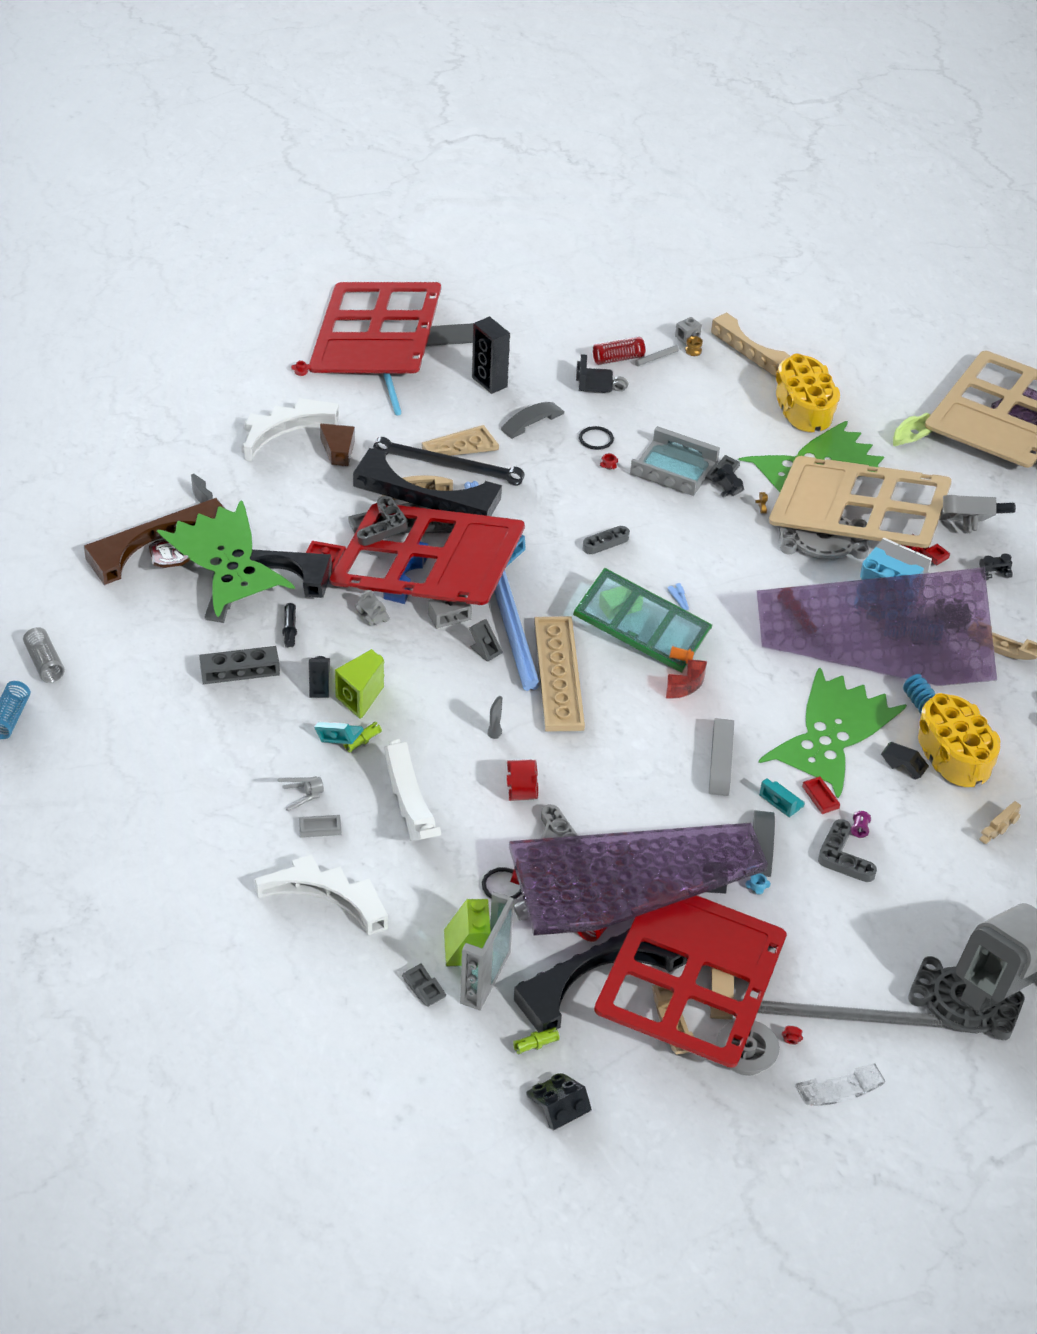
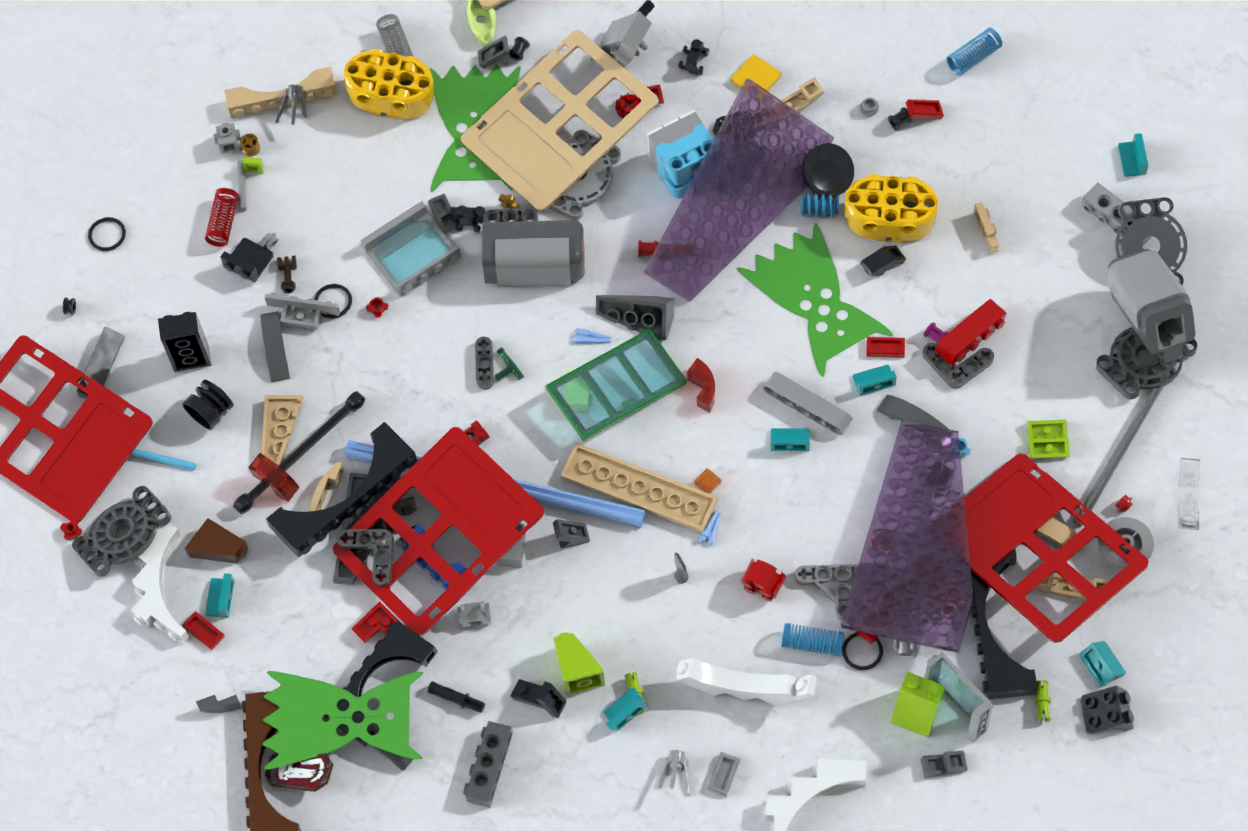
camera: 55 degrees left, 20 degrees up
(261, 465) = (203, 630): none -> red tile
(296, 463) = (220, 596): none -> teal panel
(313, 388) = (130, 546): none -> dark grey piece
(413, 450) = (274, 476): none -> clear red brick
(435, 532) = (402, 507): none -> clear smoke slope
(448, 393) = (210, 400): none -> black wheel
(484, 307) = (69, 306): none -> black bush
(491, 851) = (837, 649): none -> dark azure piece
(537, 556) = (478, 431): none -> red piece
(549, 735) = (710, 530): none -> light blue piece
(560, 312) = (111, 247): none -> black piece
(571, 421) = (301, 312): none -> light grey bracket
(597, 717) = (707, 481): none -> clear orange tile
(605, 400) = (288, 286): none -> dark brown hinge
(609, 1077) = (1102, 662): none -> teal panel
(613, 558) = (512, 368): none -> clear green piece
(677, 352) = (253, 165): none -> lime tile
(677, 758) = (790, 439): none -> teal panel
(681, 654) = (679, 371): orange pin -> none
(724, 521) = (531, 250): none -> piece
(724, 615) = (638, 312): none -> dark grey wedge
(753, 345) = (294, 93): none -> dark grey plant
(818, 950) = (1048, 439): none -> lime slope
(847, 384) = (388, 29): none -> light grey piece
(881, 845) = (971, 332): none -> red brick
(892, 447) = (494, 52): none -> dark grey slope
(908, 460) = (519, 48): none -> black bush
(963, 680) = (828, 170): none -> black piece
(1013, 615) = (757, 71): none -> yellow tile

